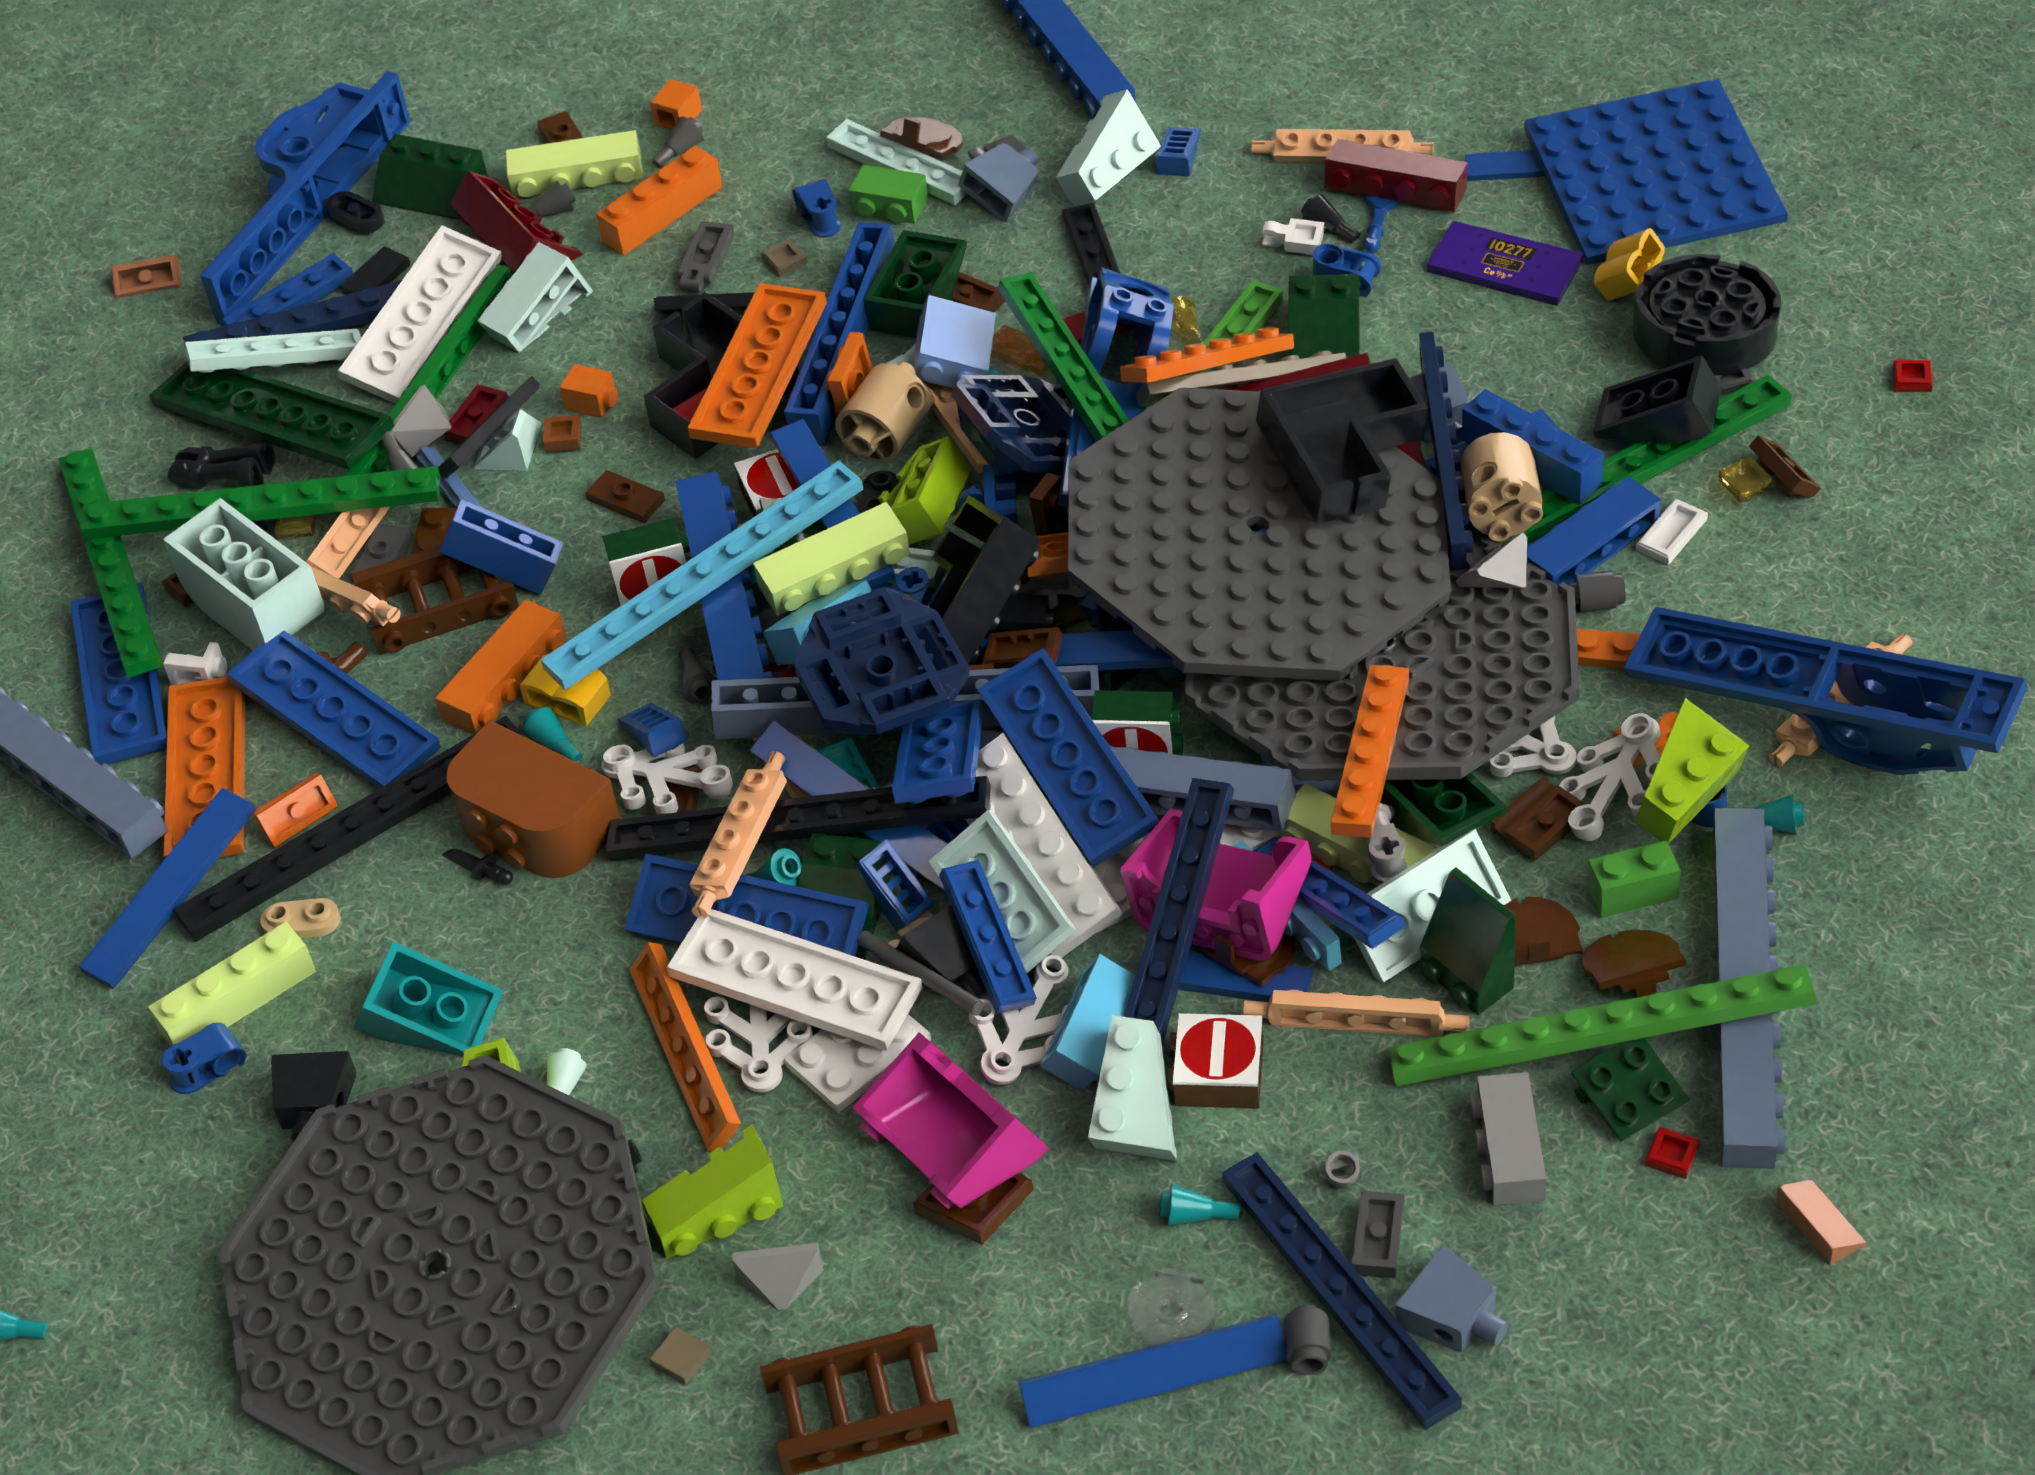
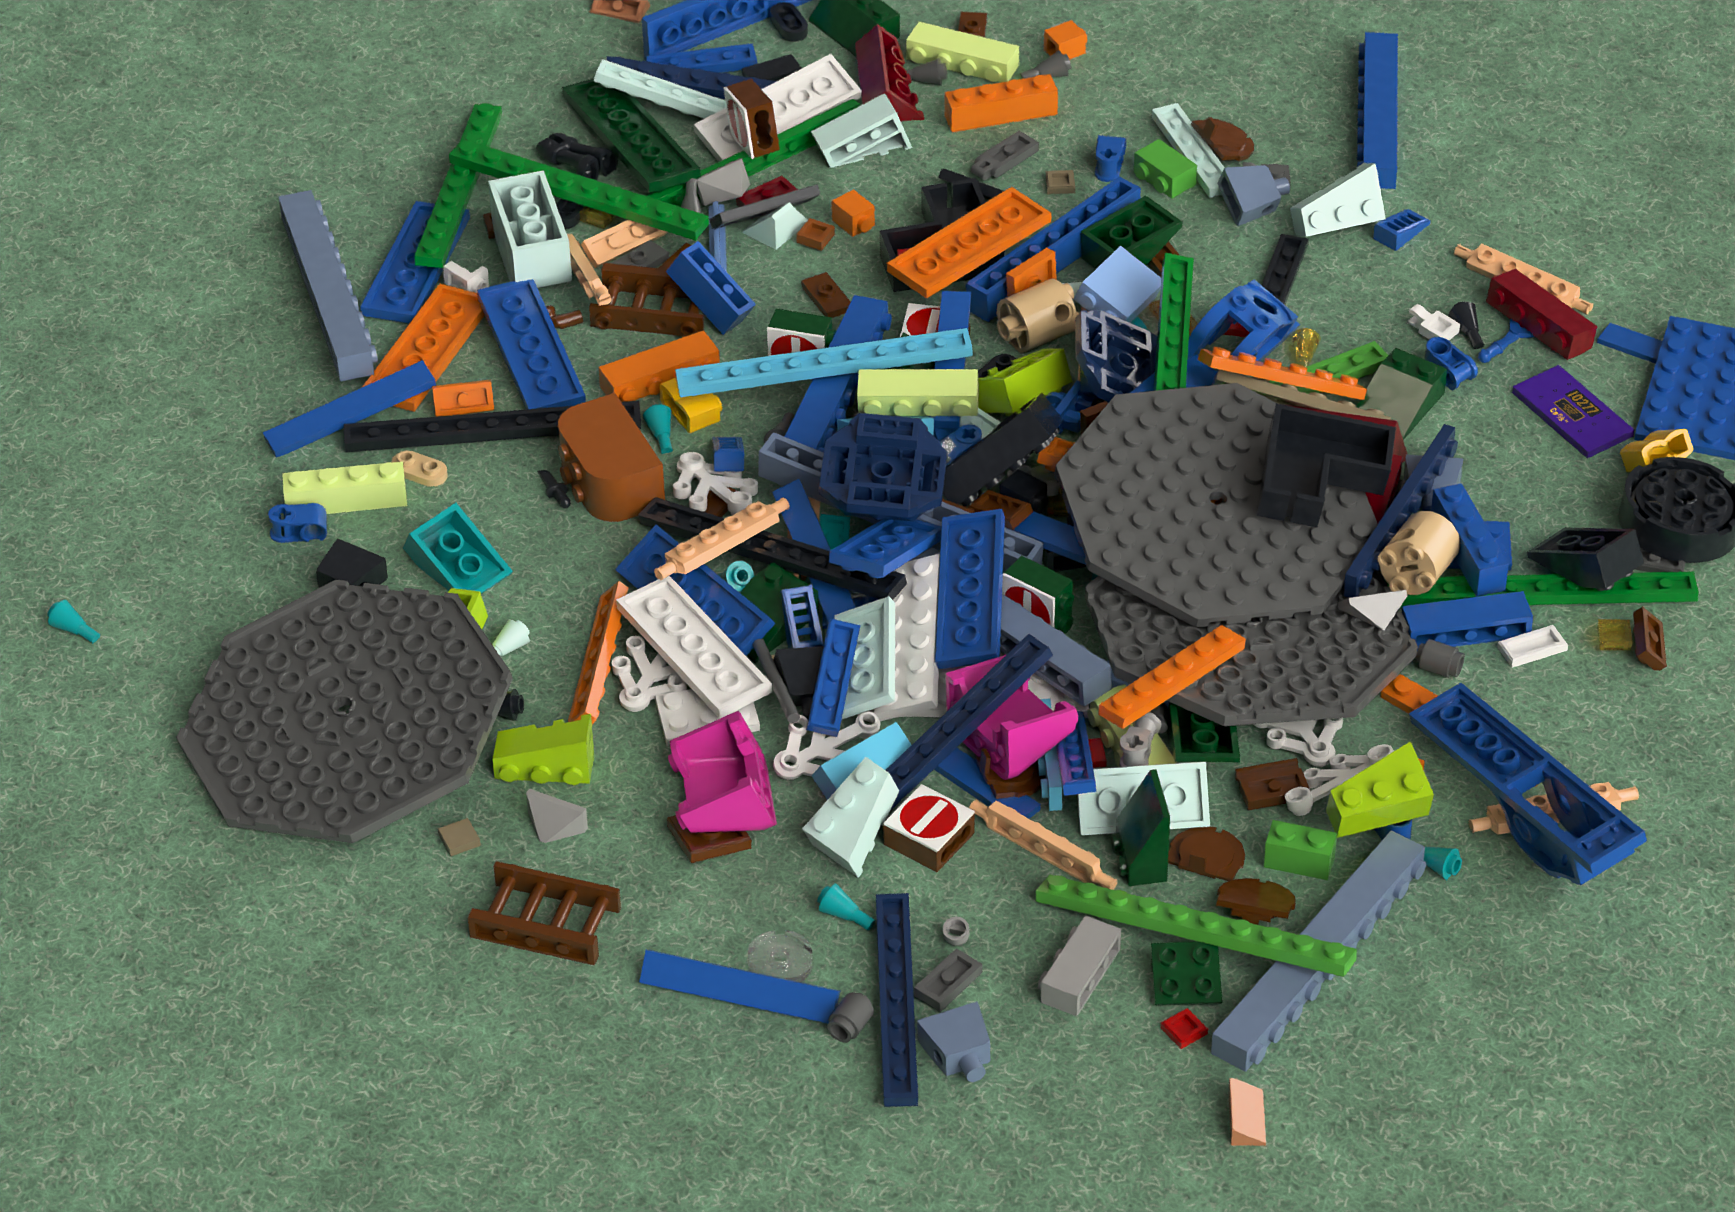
camera: 25 degrees right, 5 degrees down
(411, 334) = (751, 118): none -> reddish brown piece

